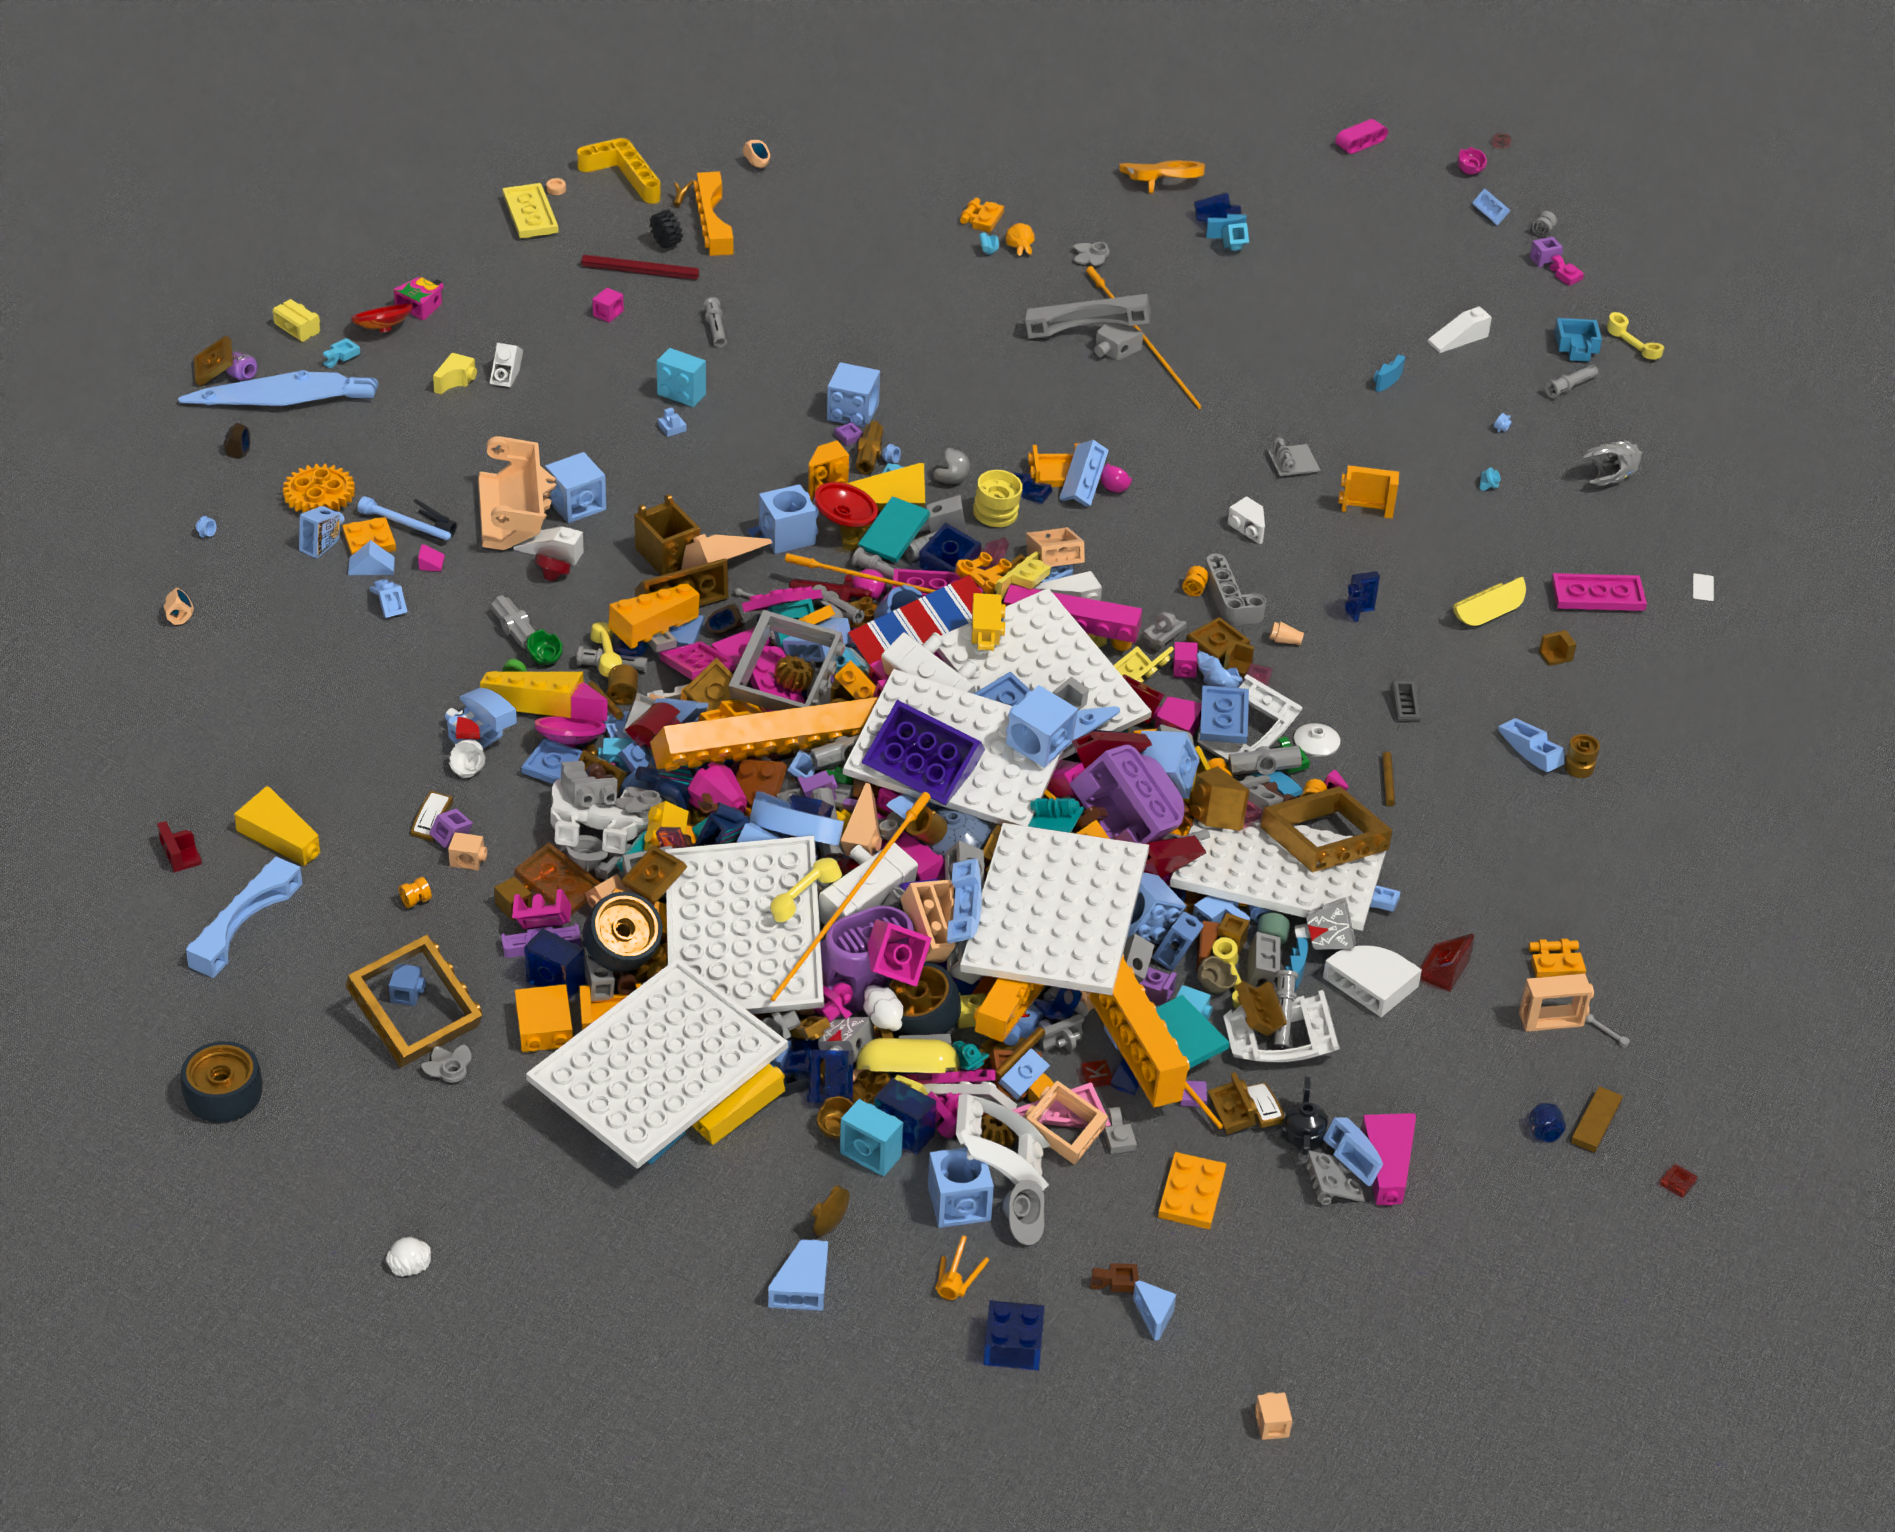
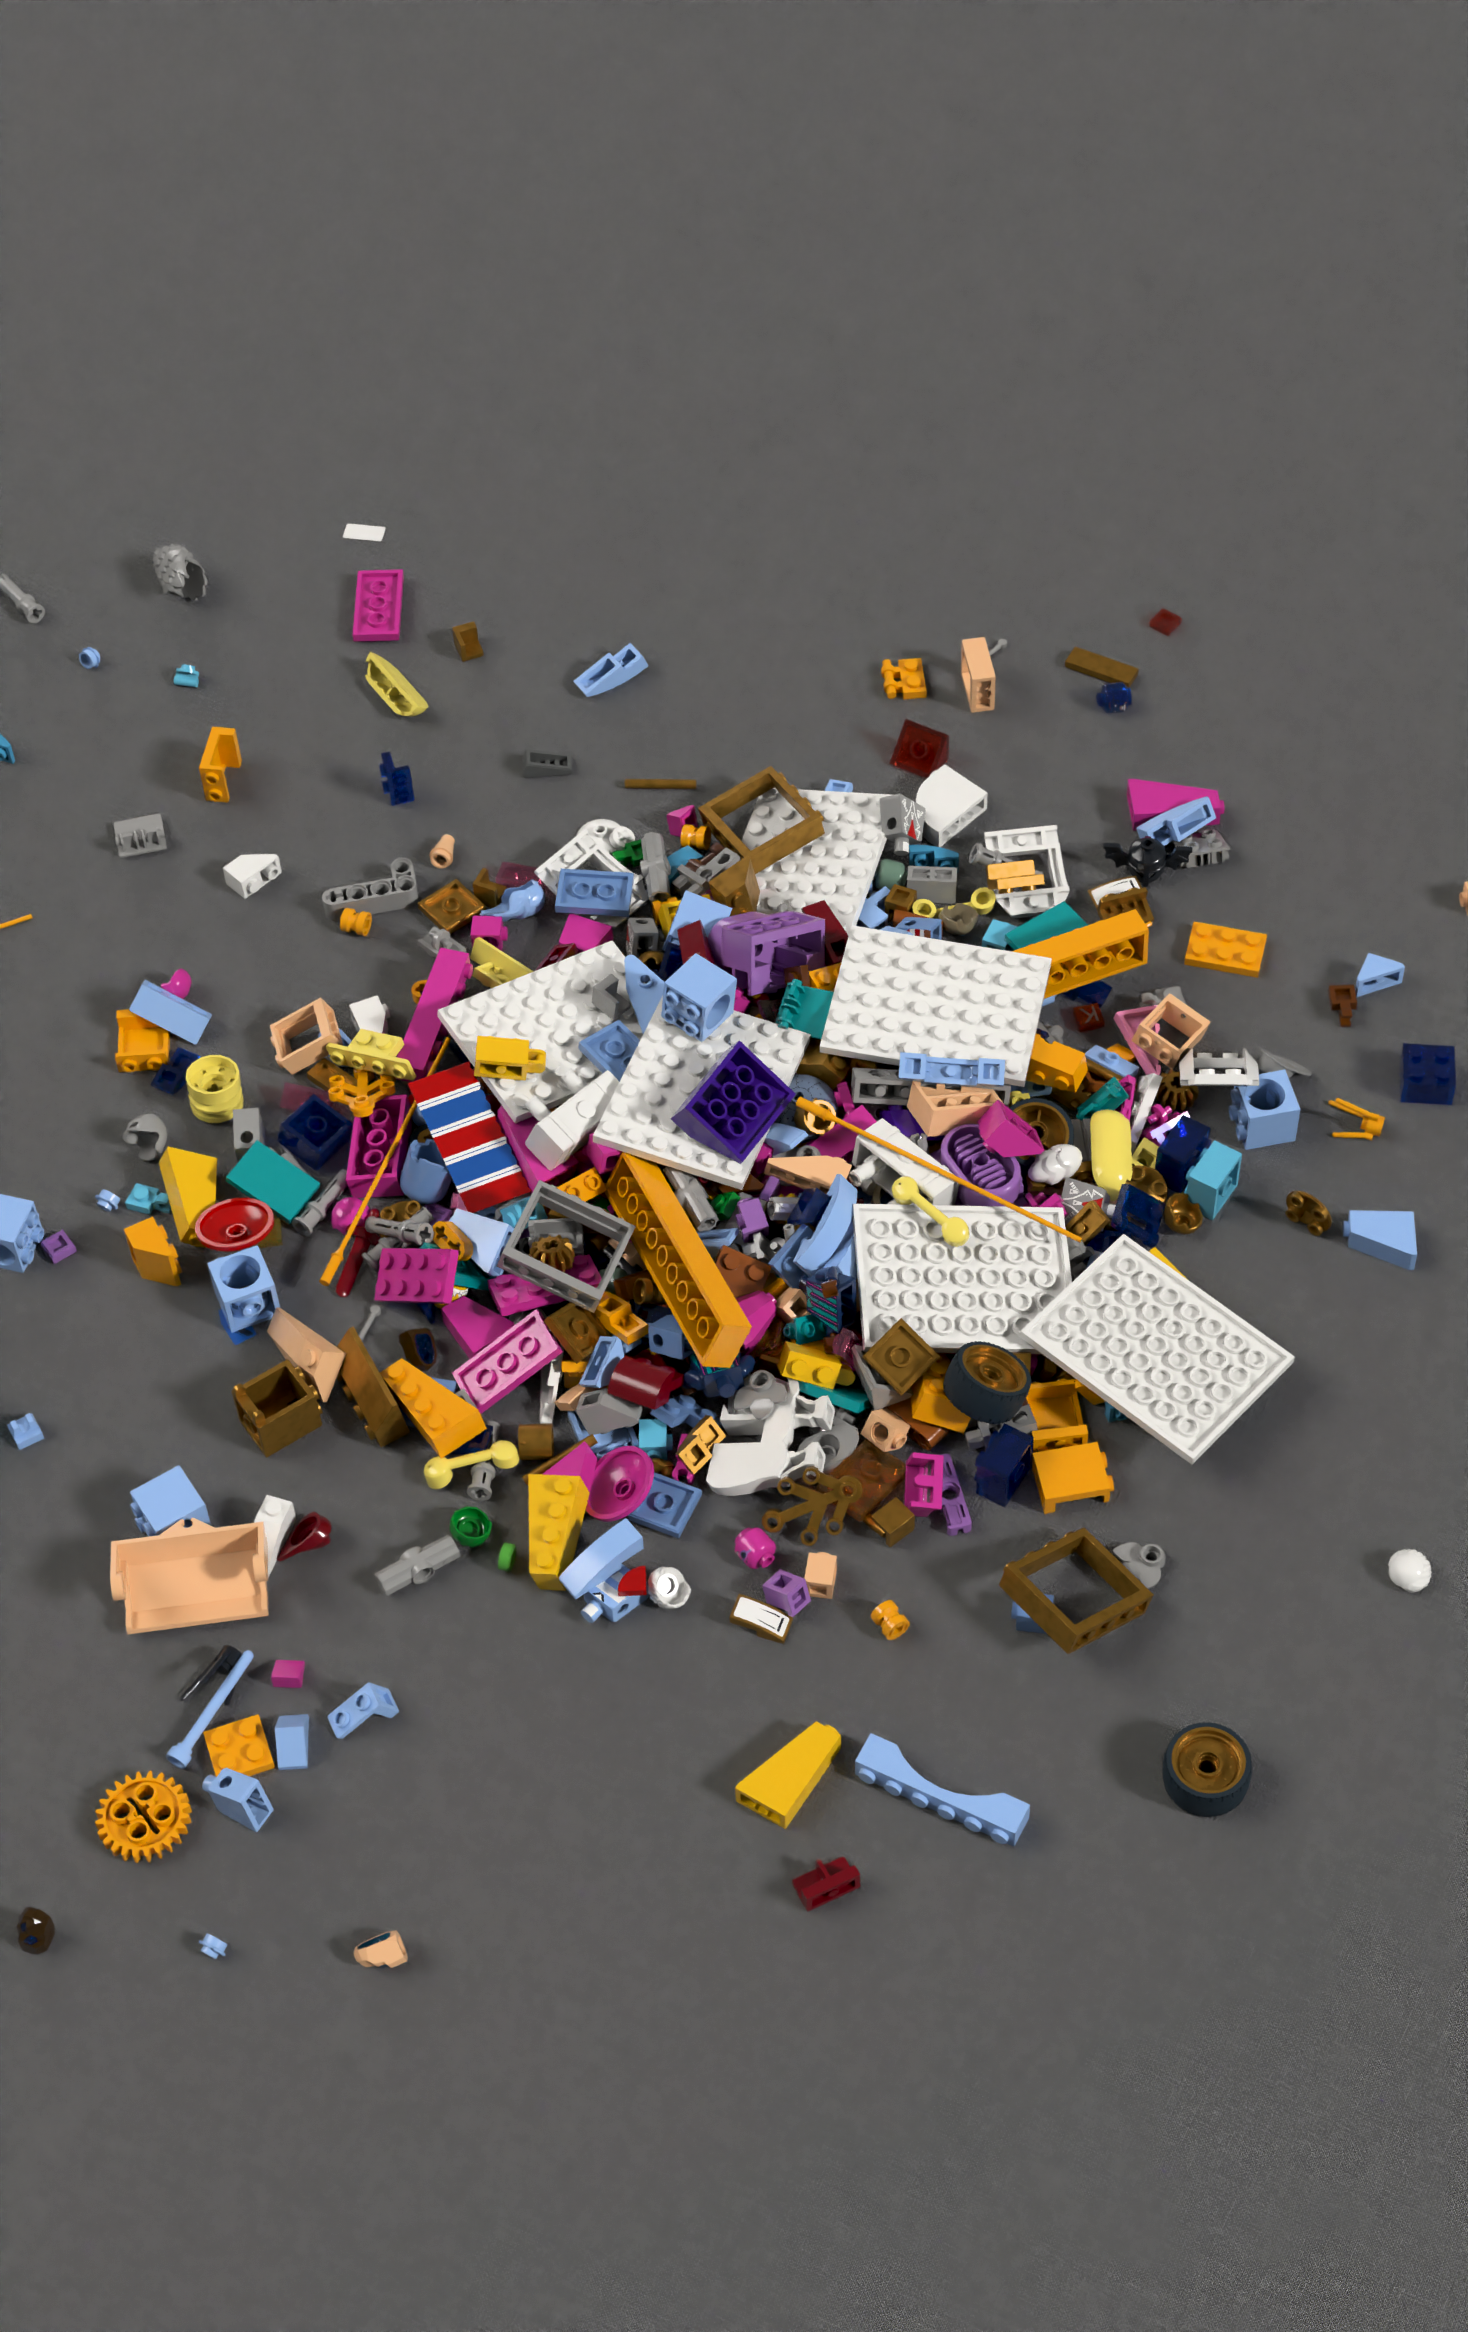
camera: 85 degrees left, 10 degrees up
(501, 813) = (755, 1548): none -> dark pink head
(534, 836) = (815, 1502): none -> pearl gold plant
(588, 786) = (747, 1442): light grey hips -> none
(830, 594) = (379, 1225): none -> light grey pin
(869, 447) = (93, 1220): pearl gold piece -> none
(1311, 747) = (621, 836): none -> white tile
(1582, 756) = (635, 630): pearl gold wheel -> none

